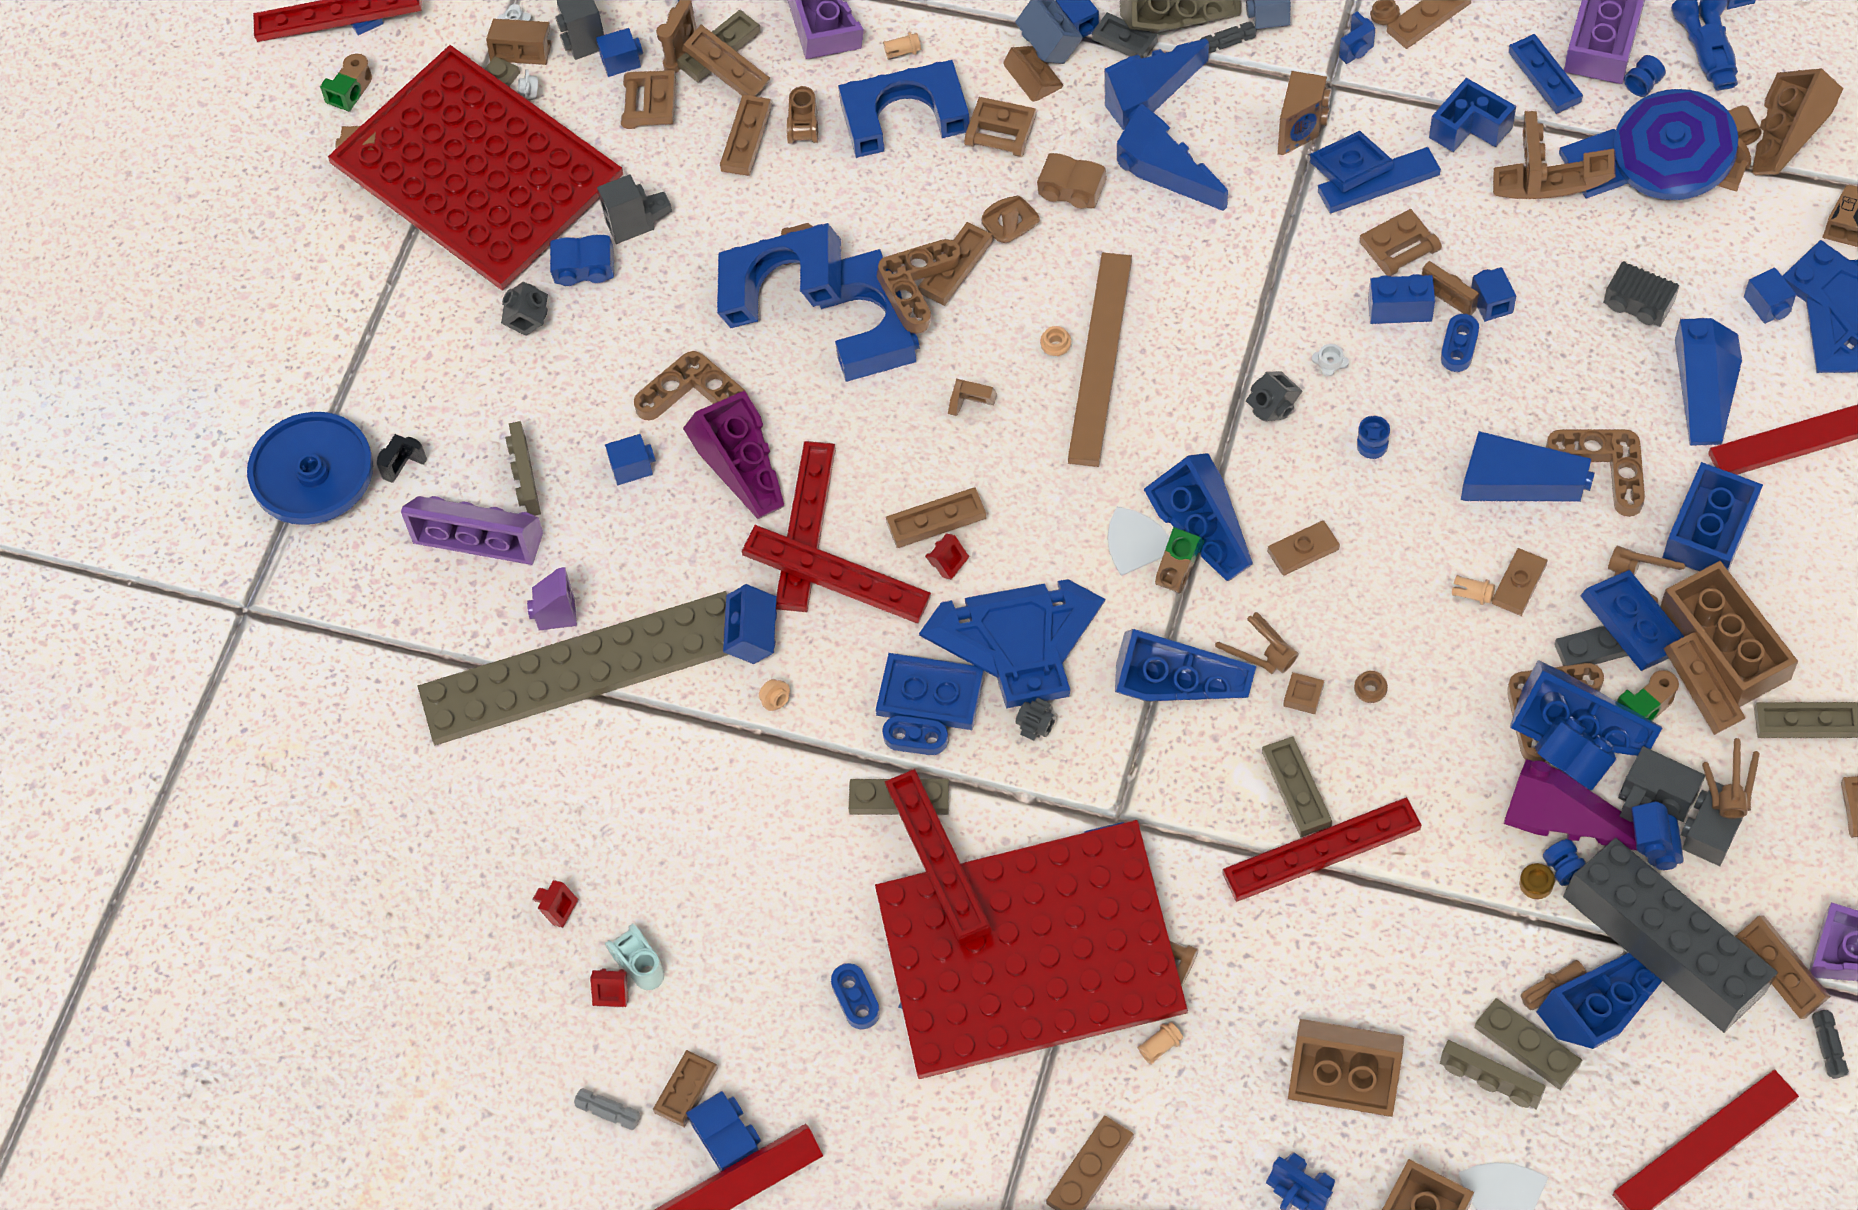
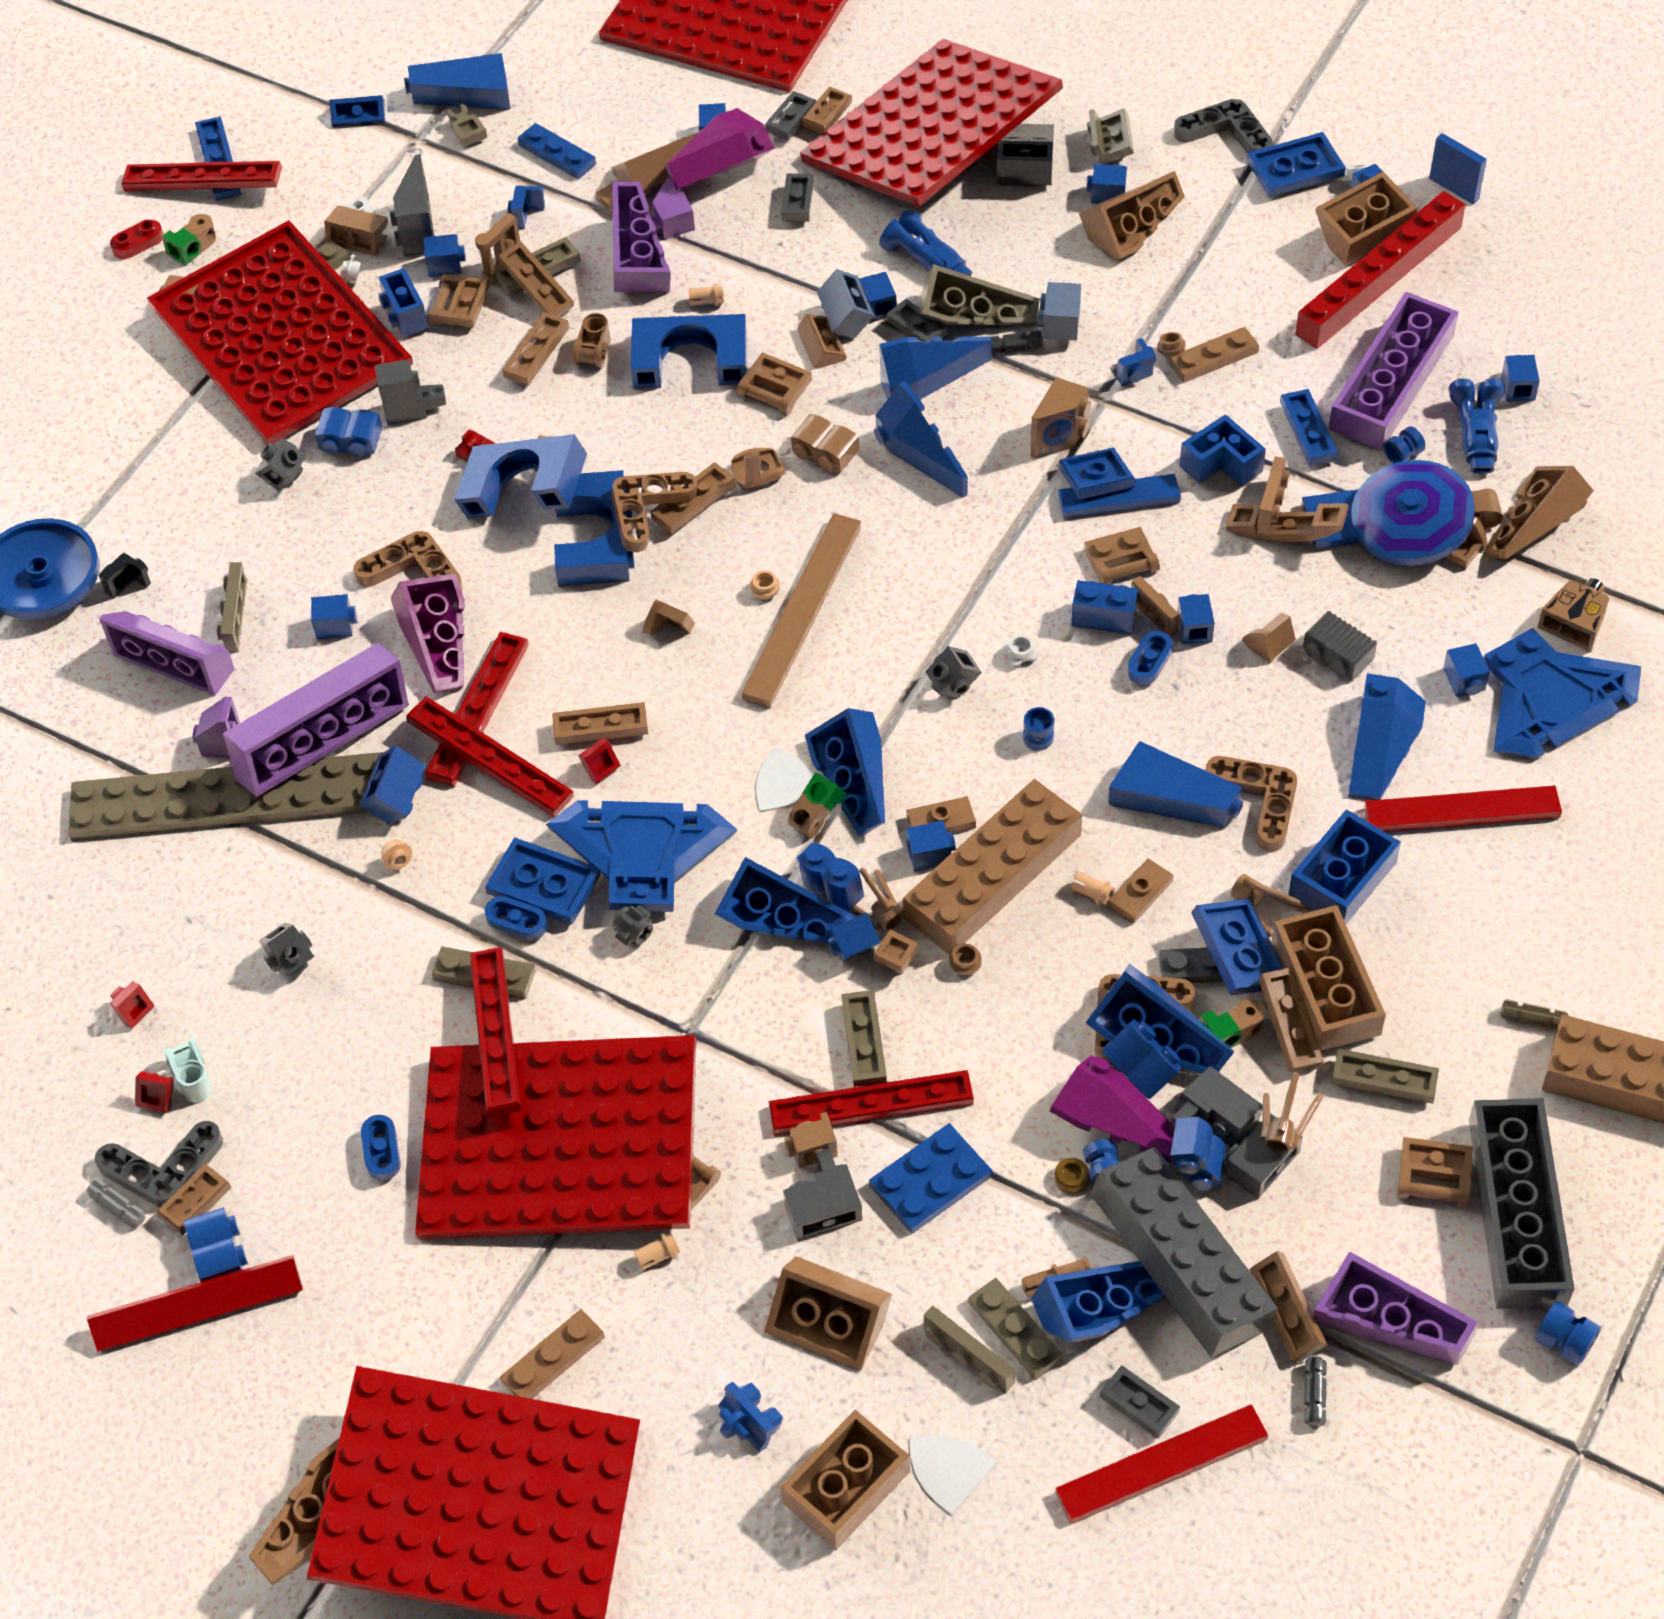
camera: 10 degrees right, 5 degrees down
(292, 92) = (136, 239): none -> red plate
(595, 111) = (403, 303): none -> blue brick
(639, 1073) = (156, 1176): none -> dark grey beam
(655, 572) = (316, 719): none -> medium lavender brick
(698, 815) = (287, 949): none -> dark grey brick
(709, 252) = (469, 440): none -> red tile
(1214, 629) = (830, 876): none -> blue brick
(1257, 686) = (852, 936): none -> blue brick
(1279, 901) = (810, 1138): none -> medium nougat brick
(1302, 578) = (929, 845): none -> blue brick
(1310, 959) = (825, 1202): none -> dark grey hinge
(1371, 587) = (992, 866): none -> medium nougat brick
(1402, 912) = (930, 1178): none -> blue plate
(1573, 301) = (1272, 638): none -> medium nougat tile
(1669, 1090) = (1140, 1401): none -> dark grey plate

